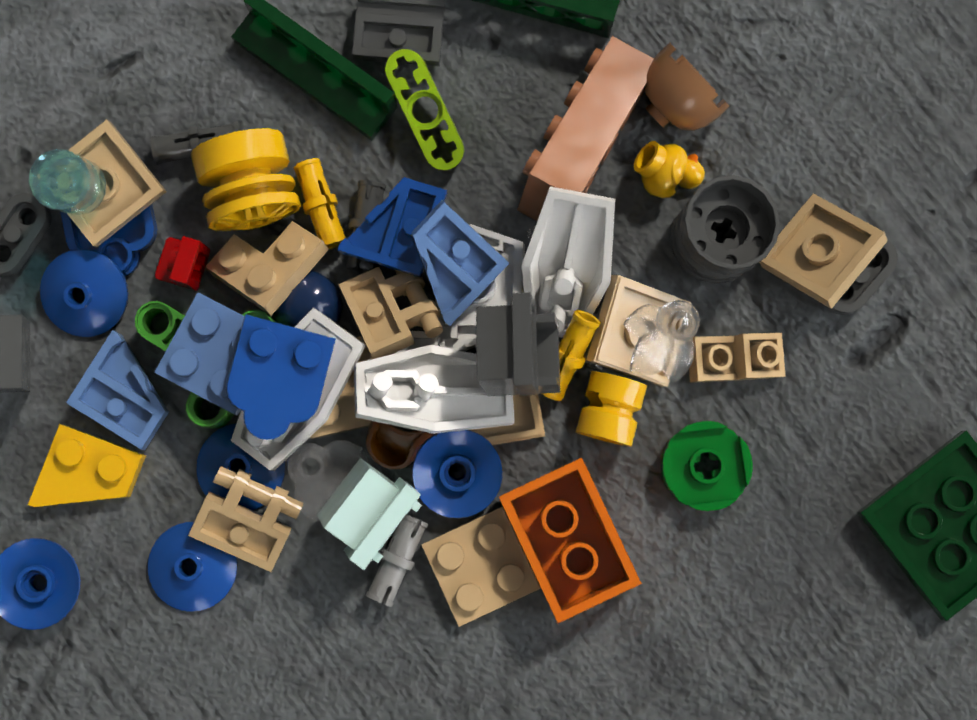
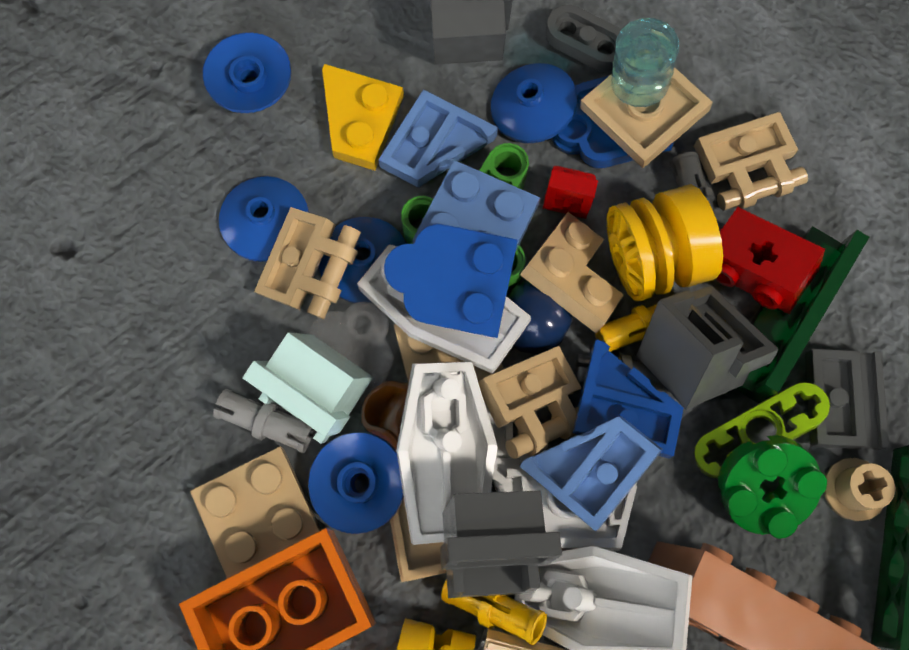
camera: 85 degrees right, 10 degrees down
(147, 89) = (745, 148): none -> tan plate
(245, 96) = (767, 260): none -> red brick
(347, 154) = (702, 346): none -> dark grey plate
(478, 31) = (858, 489): none -> tan piece
(495, 102) = (789, 504): none -> green plate

